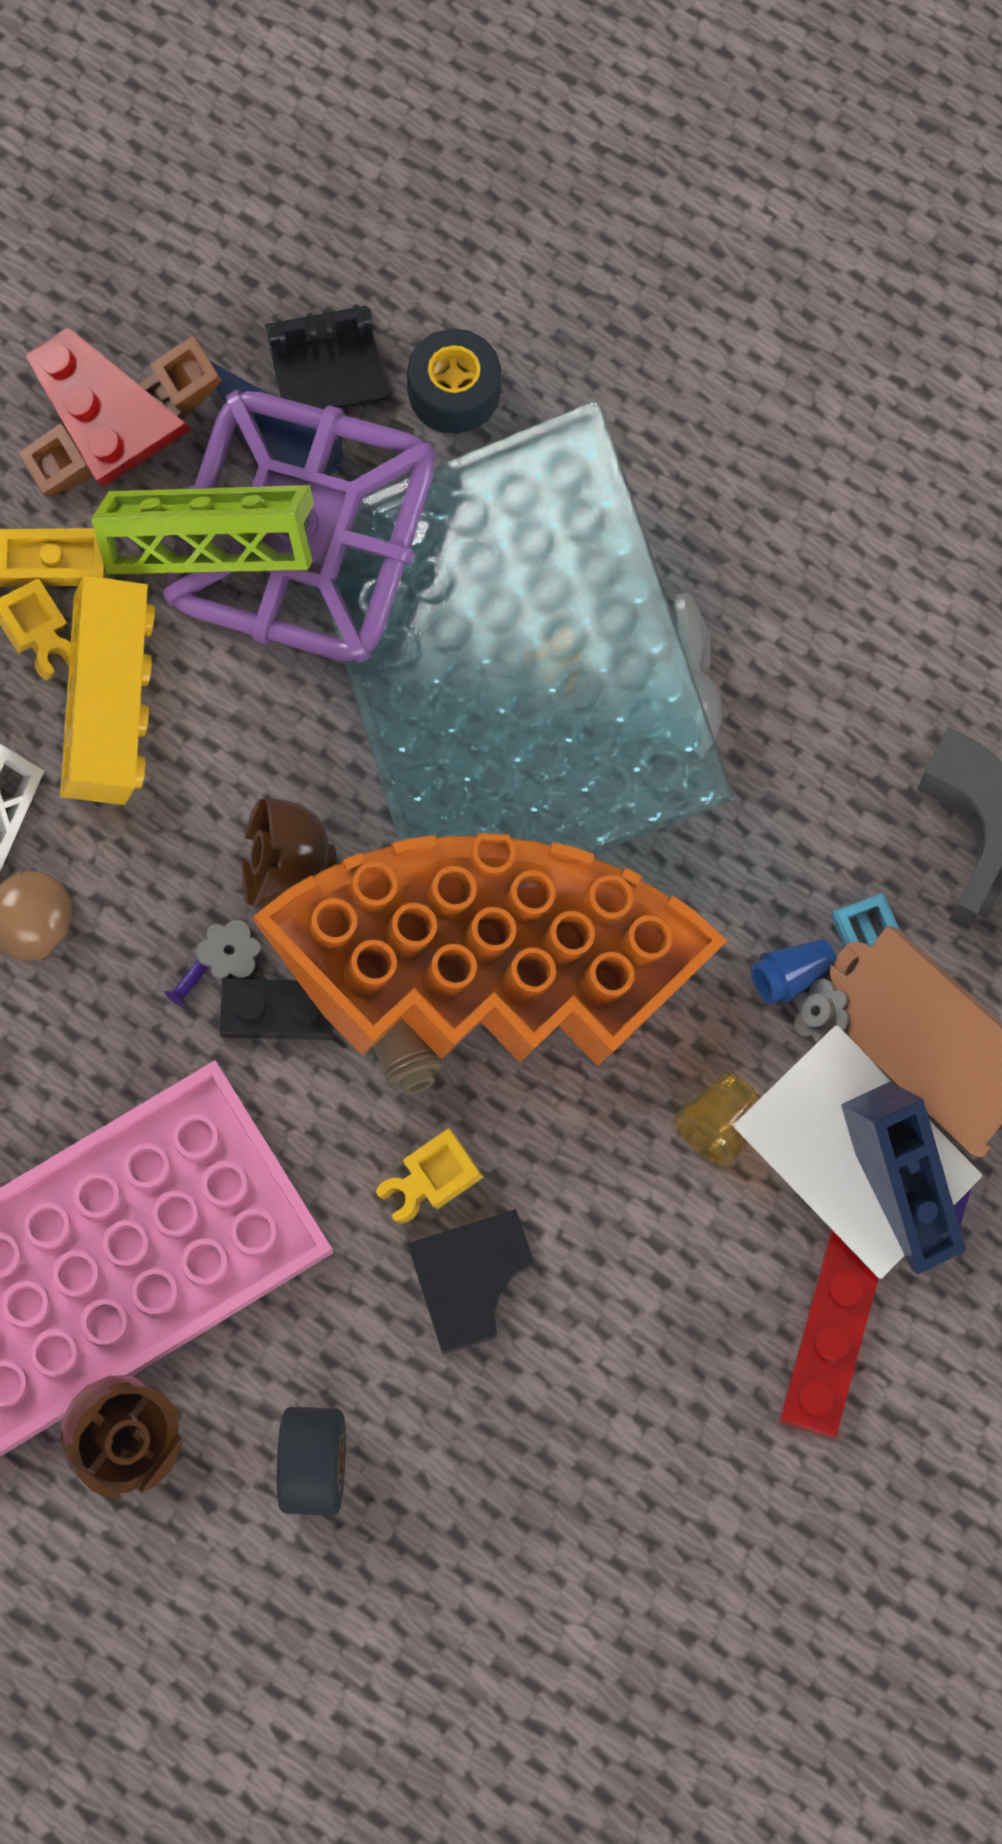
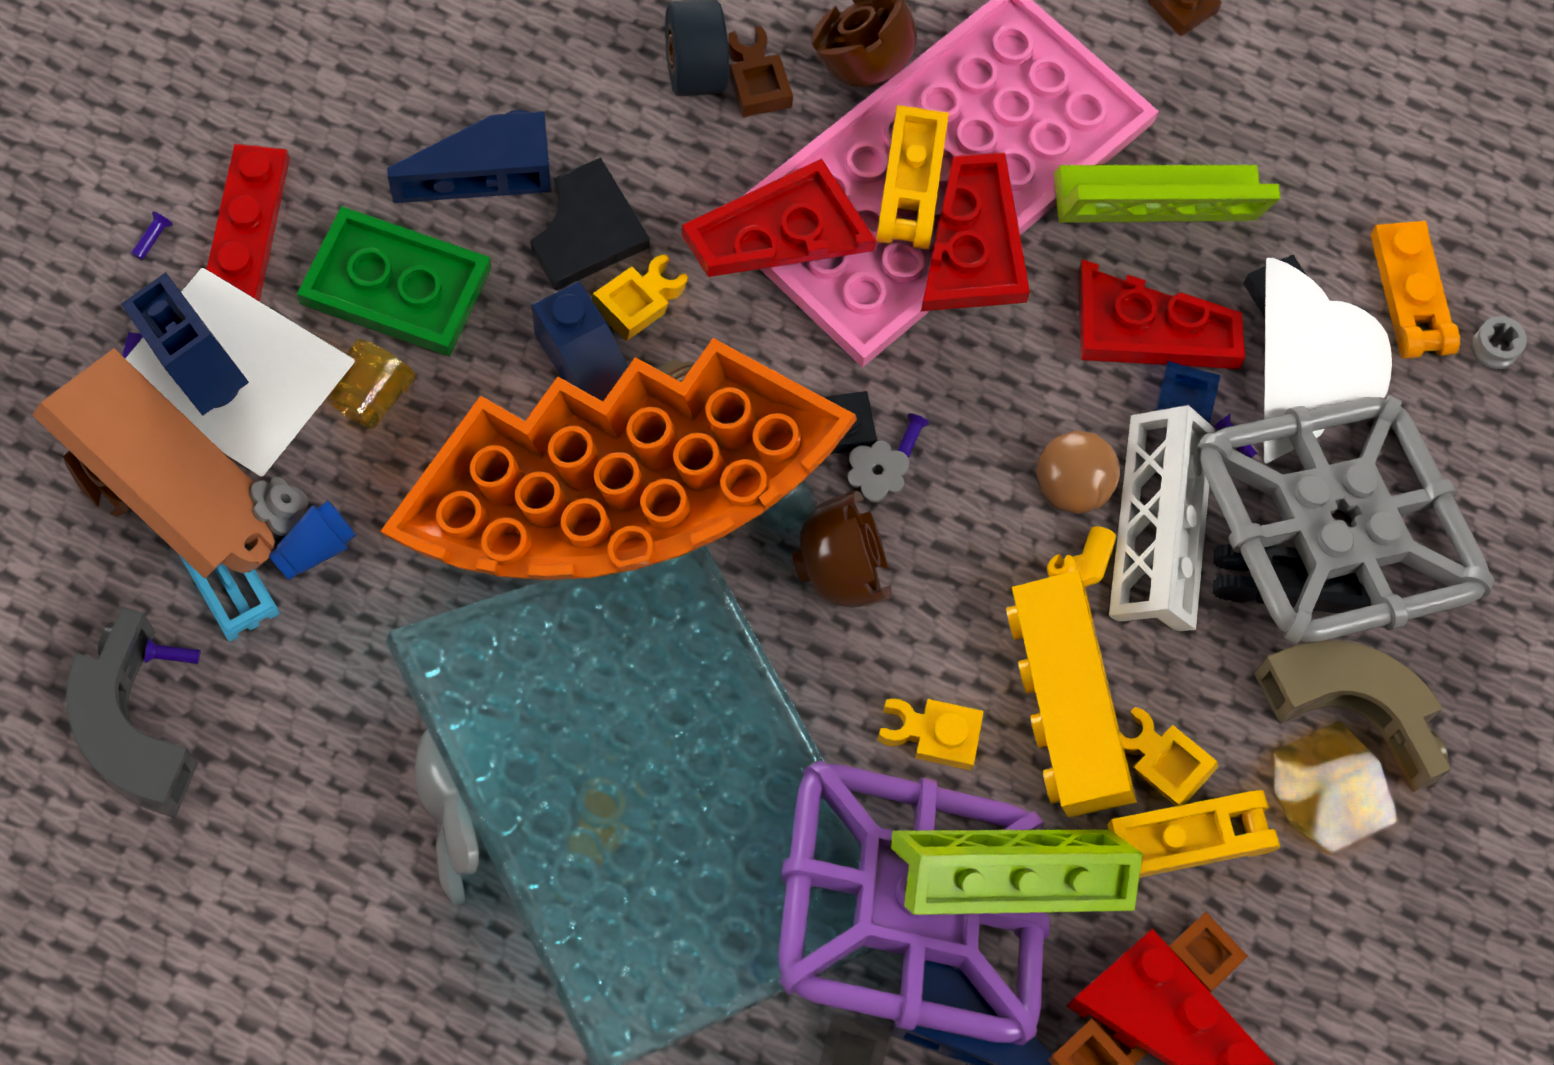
camera: 165 degrees right, 5 degrees down
(53, 819) = (1091, 562): none -> yellow arm
(64, 1159) = (977, 239): none -> red wing
(112, 1246) = (913, 175): none -> yellow plate
(234, 689) = (944, 732): none -> yellow plate
(247, 1421) = (757, 78): none -> reddish brown plate
(266, 1212) = (780, 224): none -> red wing
(495, 1107) = (578, 340): none -> dark blue slope
(560, 1364) = (483, 160): none -> dark blue slope
(681, 1238) = (394, 281): none -> green plate
(932, 1347) = (151, 235): none -> dark purple piece
(934, 891) = (171, 653): none -> dark purple piece

